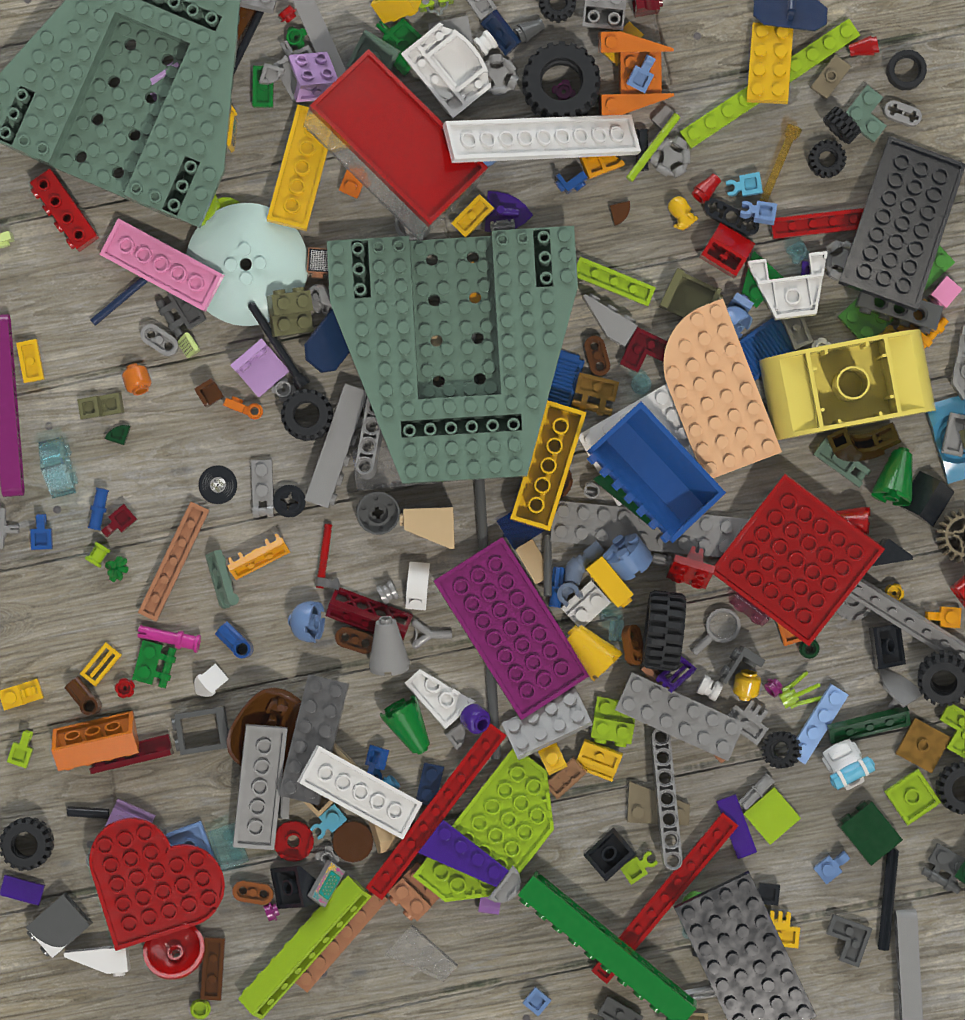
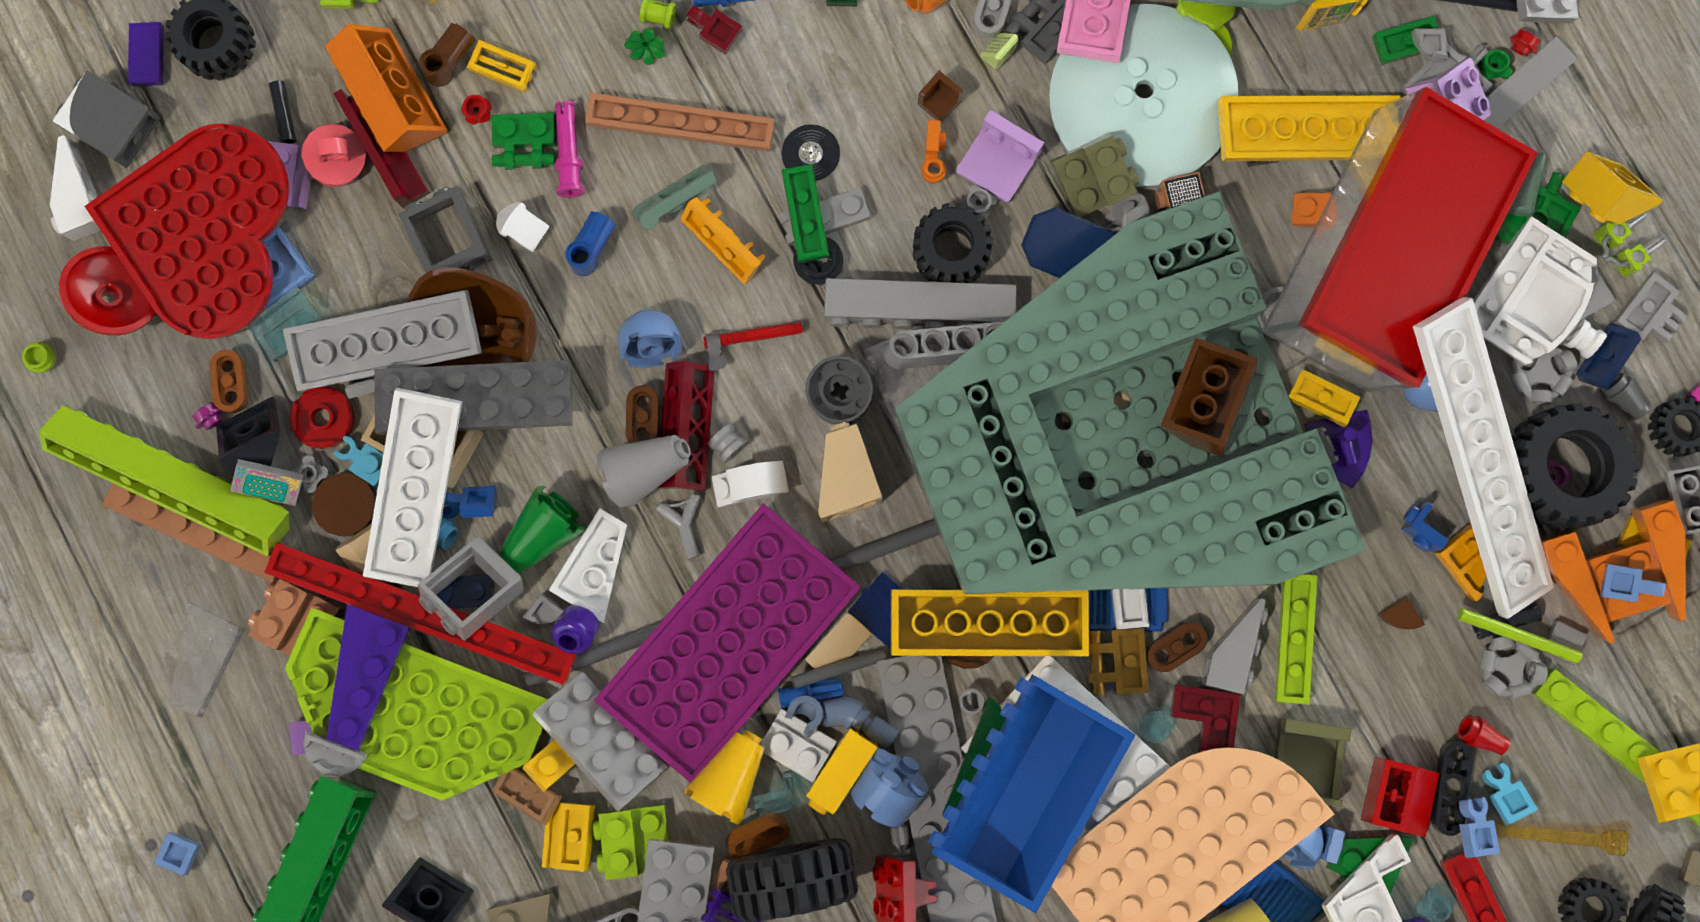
camera: 85 degrees right, 5 degrees down
(127, 786) = (333, 155): none -> coral tile
(213, 968) = (101, 357): reddish brown plate -> none
(258, 500) = (805, 213): none -> green tile
(299, 379) = (1001, 219): black piece -> none
(420, 758) = (490, 562): none -> light grey window
(452, 288) = (1209, 396): none -> reddish brown slope
(565, 376) = (1129, 608): none -> white tile
(682, 212) = (1435, 709): yellow animal -> none

